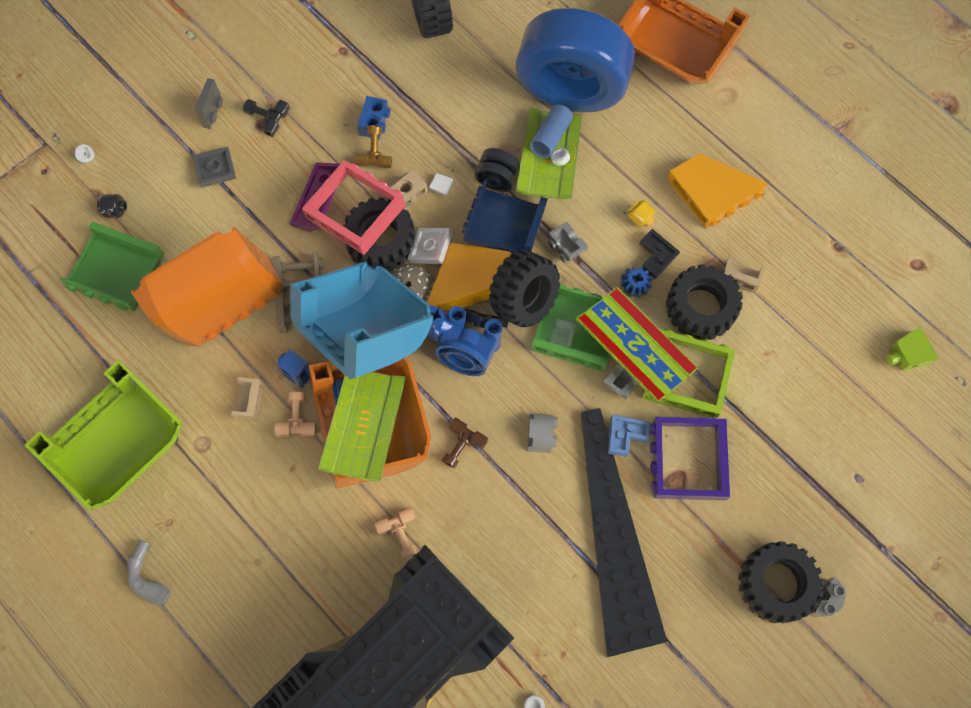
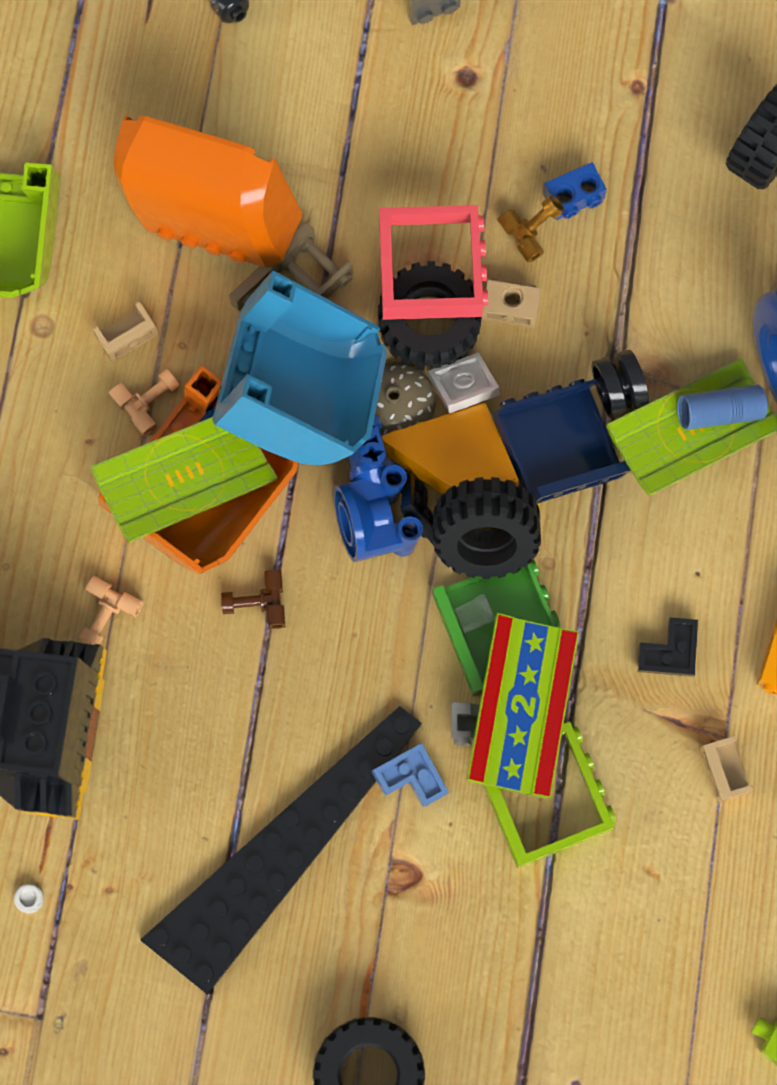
camera: 55 degrees right, 5 degrees up
(113, 266) = (162, 66): bright green panel -> none
(214, 167) = (366, 70): dark grey plate -> none
(271, 116) = (481, 78): black bar -> none
(294, 368) = (195, 350): blue brick -> none
(319, 175) = (452, 192): magenta slope -> none
(441, 184) = (555, 335): white tile -> none
(541, 433) = (339, 678): light grey cylinder -> none
(560, 157) = (695, 443): white tile -> none
(566, 242) = (597, 533): light grey cylinder -> none
(639, 275) = (618, 643): blue gear -> none
(641, 213) = (708, 592): yellow head -> none
(716, 283) = (674, 721): black tyre -> none
(722, 462) = (400, 837): dark purple window -> none

